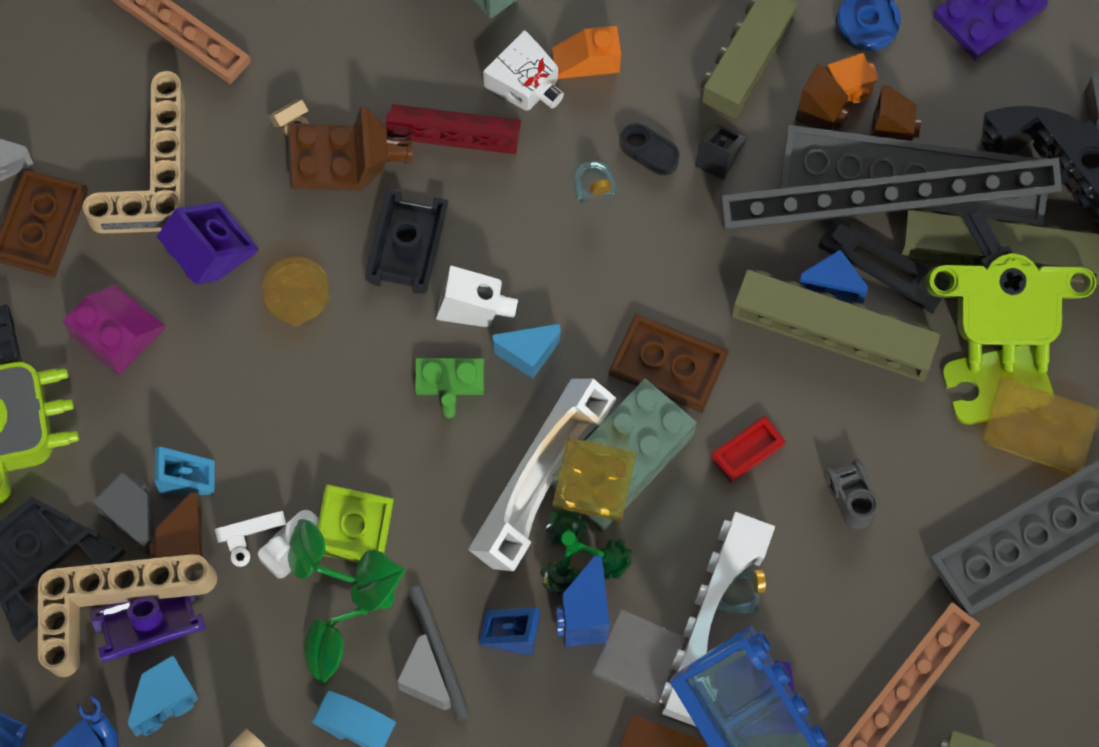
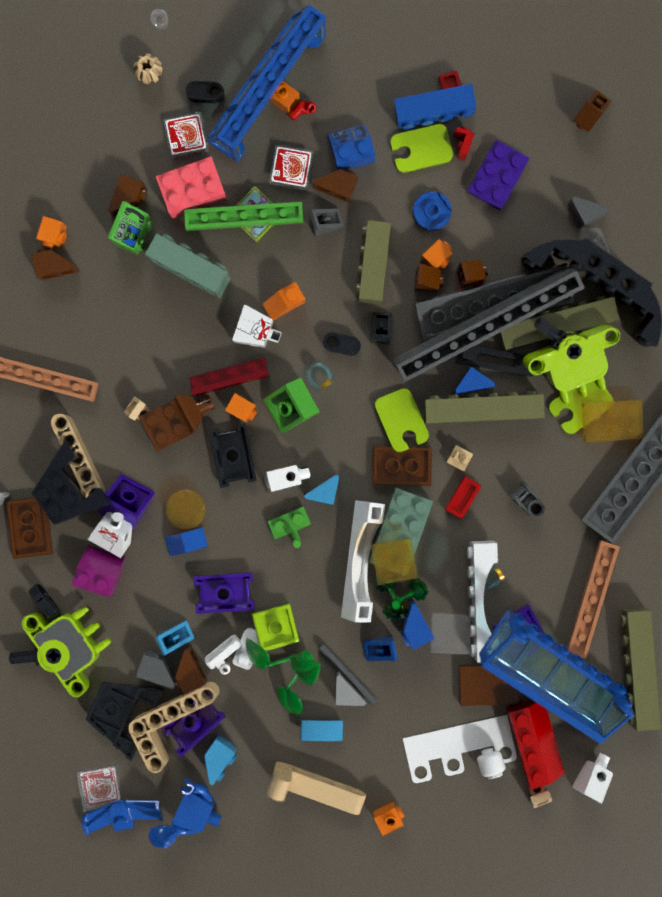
camera: 20 degrees left, 20 degrees up
(114, 182) = (60, 495): none -> black wing
(165, 272) = (112, 533): none -> white torso
(272, 337) = (186, 541): none -> blue slope
(313, 454) = (238, 589): none -> dark purple piece
(452, 174) = (241, 408): none -> orange brick
(531, 201) = (291, 405): none -> bright green slope
(696, 283) = (400, 414): none -> lime piece
(767, 387) = (459, 458): none -> tan tile

